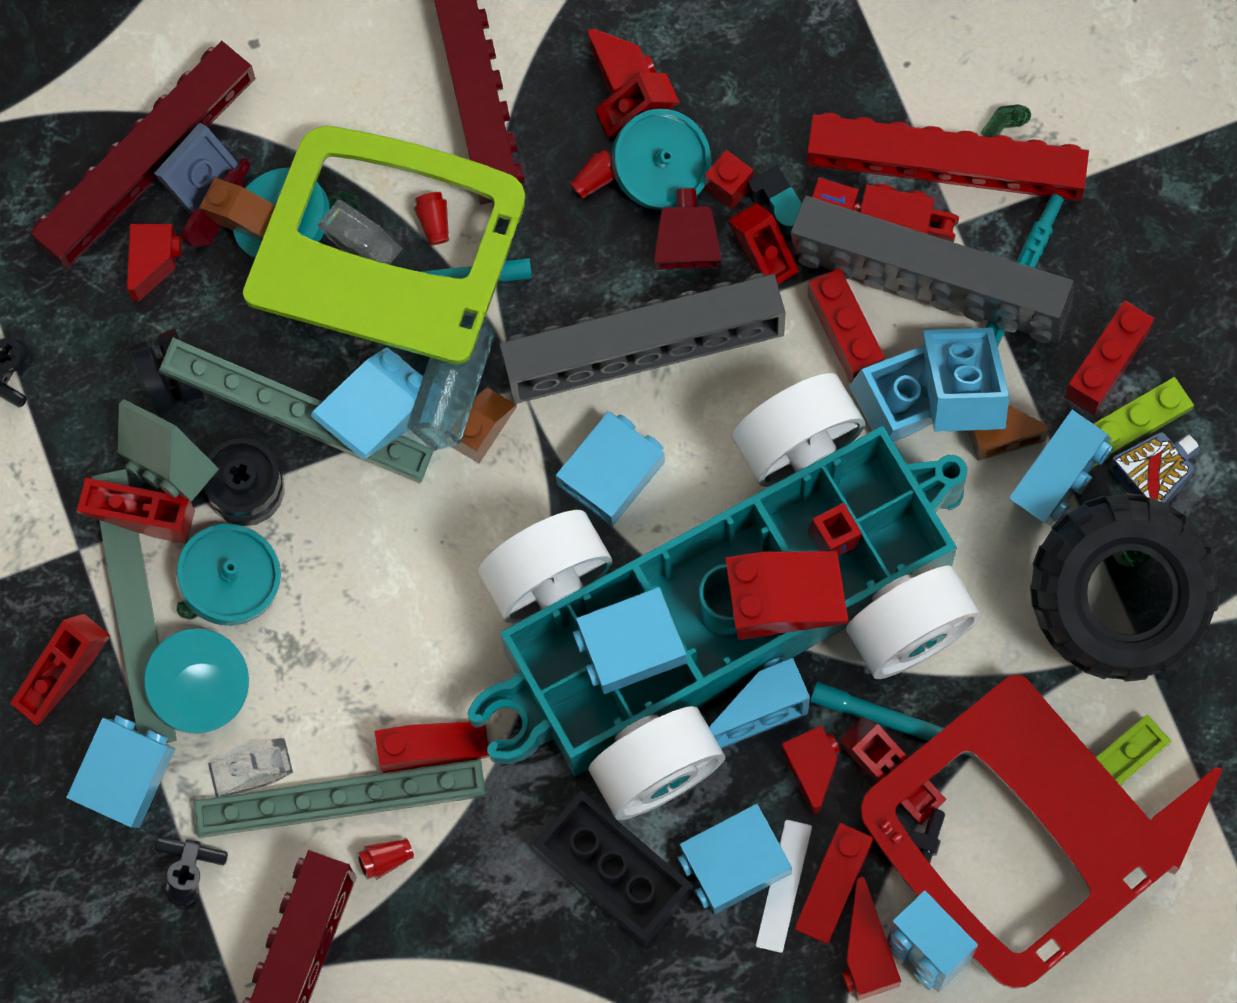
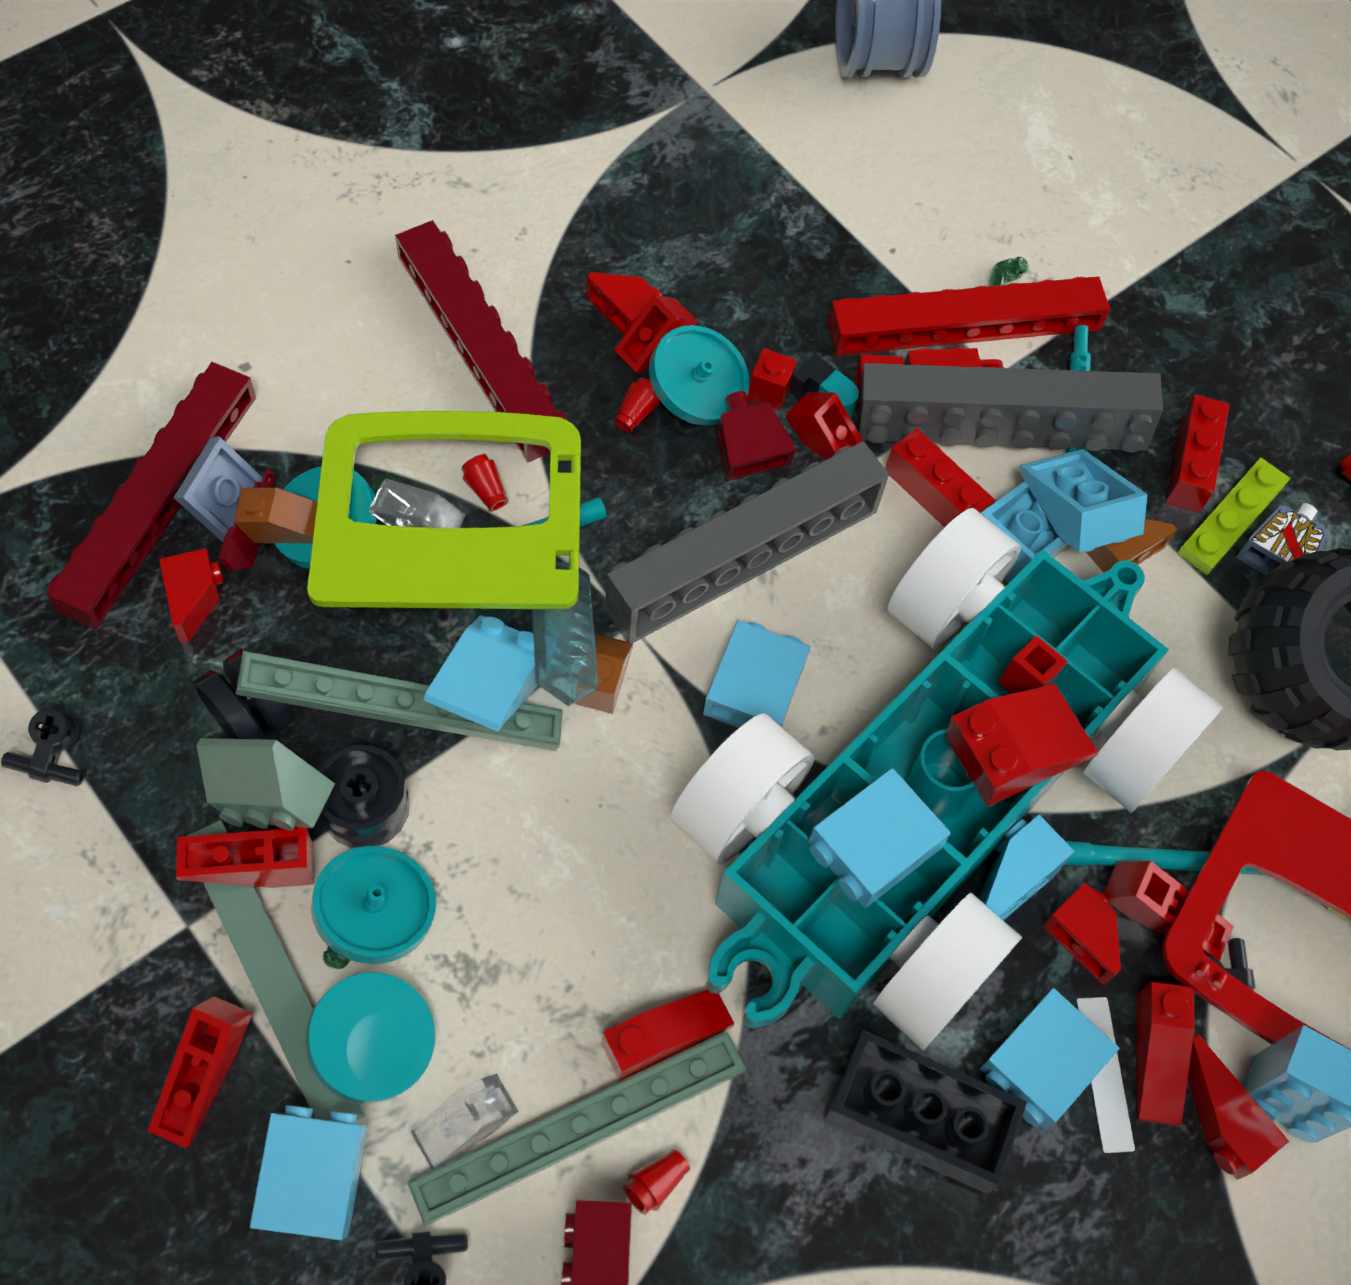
camera: 30 degrees left, 10 degrees down
(1062, 468) = (1213, 558): medium azure brick -> none

